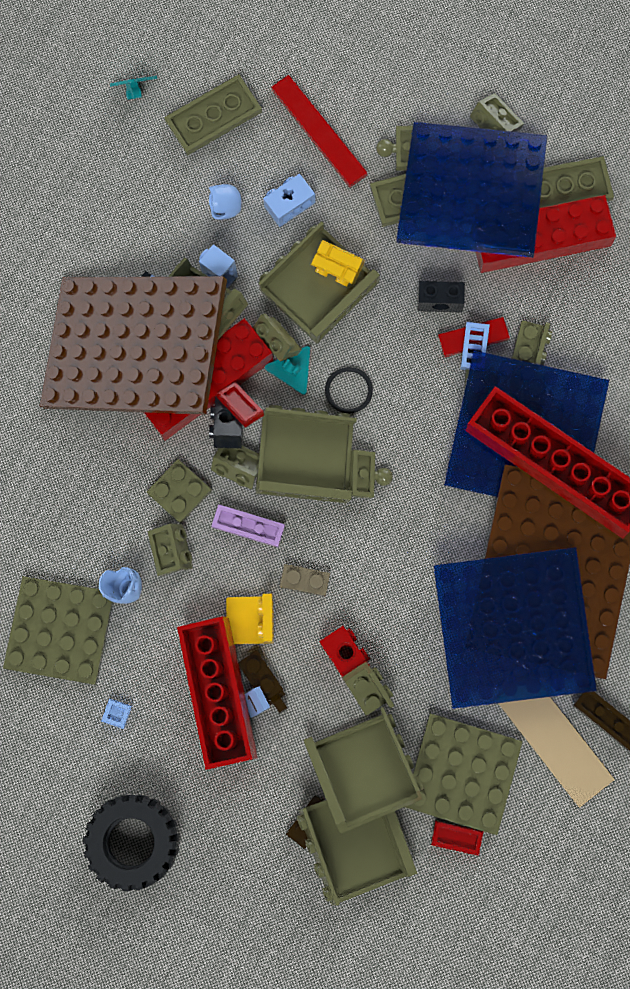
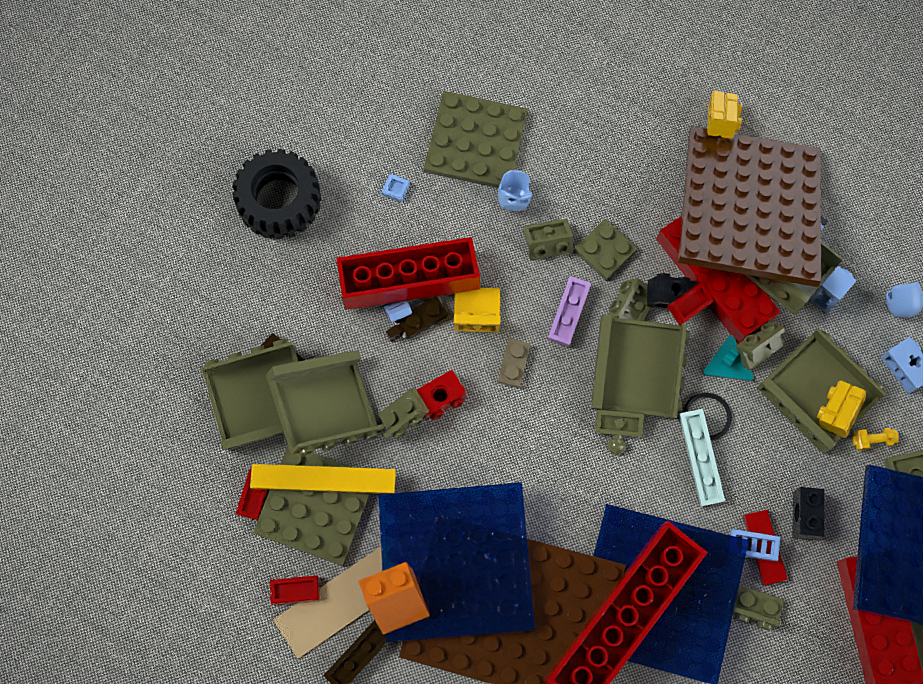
camera: 85 degrees right, 5 degrees down
(29, 372) = (724, 115): none -> yellow brick
(365, 245) = (863, 440): none -> yellow bar
(392, 394) = (701, 457): none -> light aqua plate
(440, 767) = (323, 479): none -> yellow tile
(549, 787) = (294, 590): none -> red tile
(558, 683) = (394, 597): none -> orange slope

